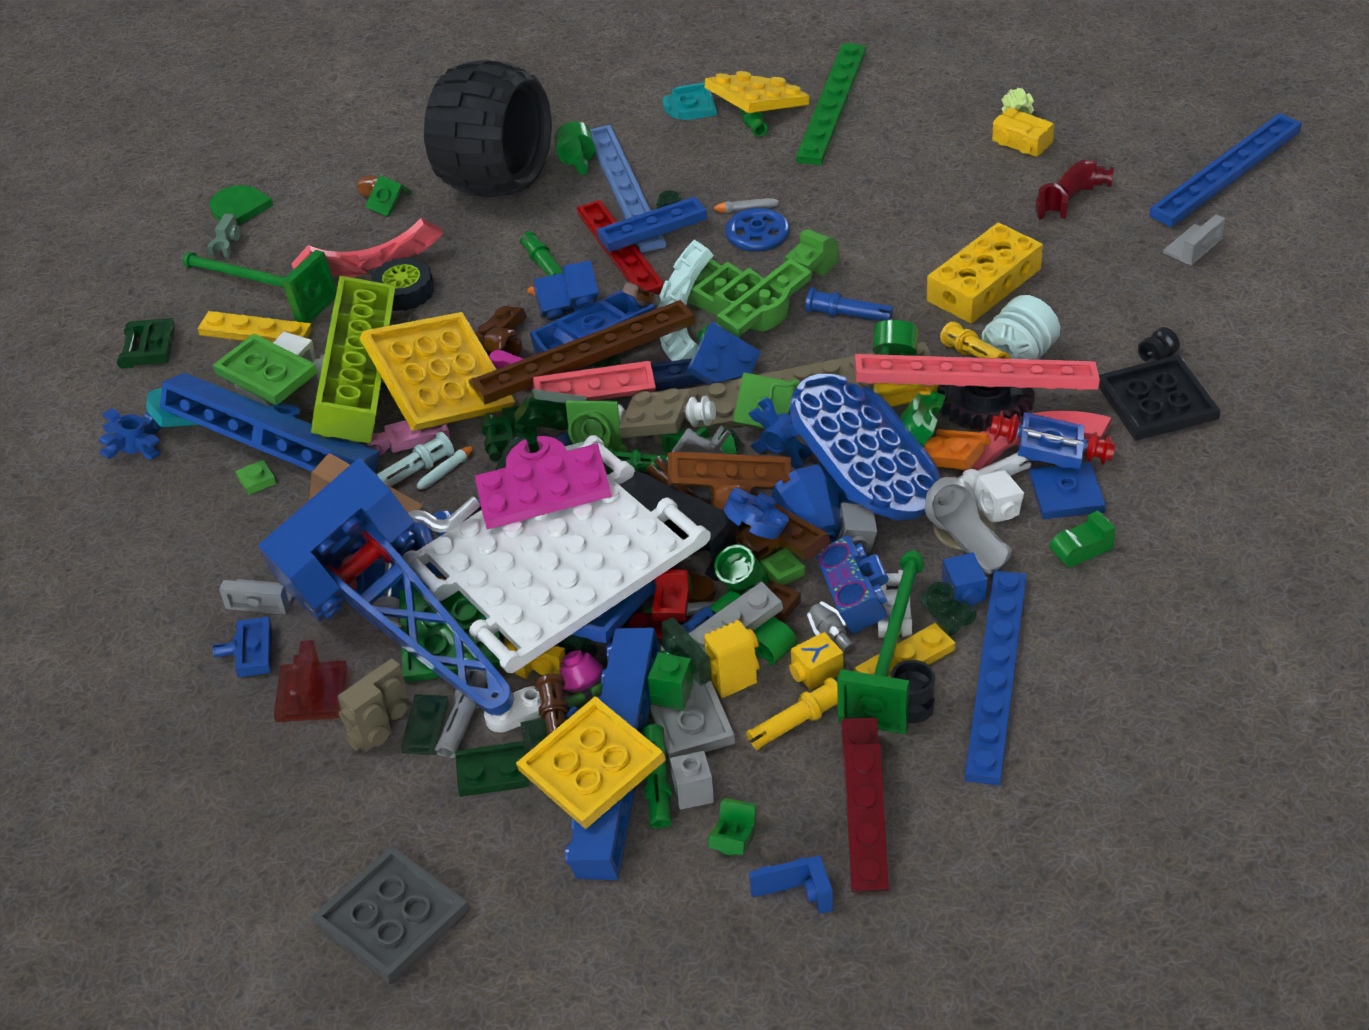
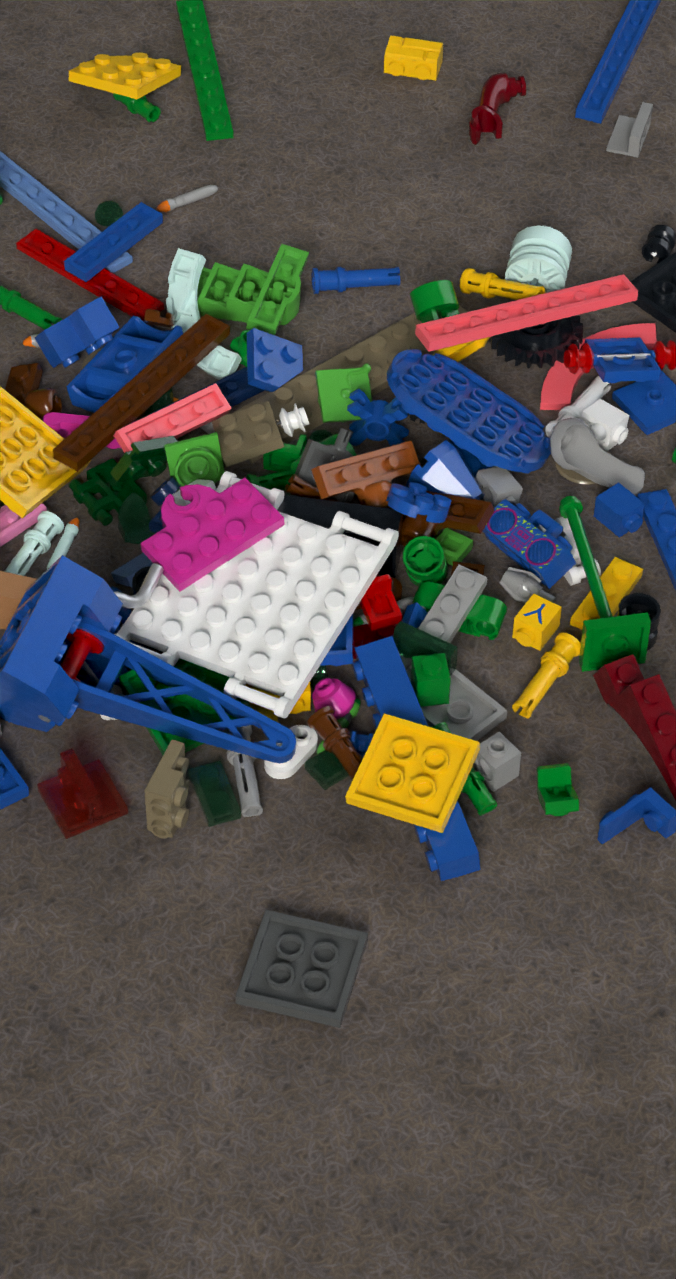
camera: 30 degrees left, 5 degrees up
(490, 769) = (304, 812): dark green plate -> none
(689, 102) = (58, 100): teal tile -> none
(732, 658) = (472, 636): yellow brick -> none
(757, 229) = (213, 221): blue plate -> none
(815, 252) = (294, 230): bright green brick -> none
(919, 415) = (495, 369): green cylinder -> none
(946, 609) = (614, 539): clear green plate -> none
(956, 448) = (540, 390): orange plate -> none
(984, 272) = (464, 239): yellow brick -> none
(1018, 100) = (391, 25): yellowish green gear -> none

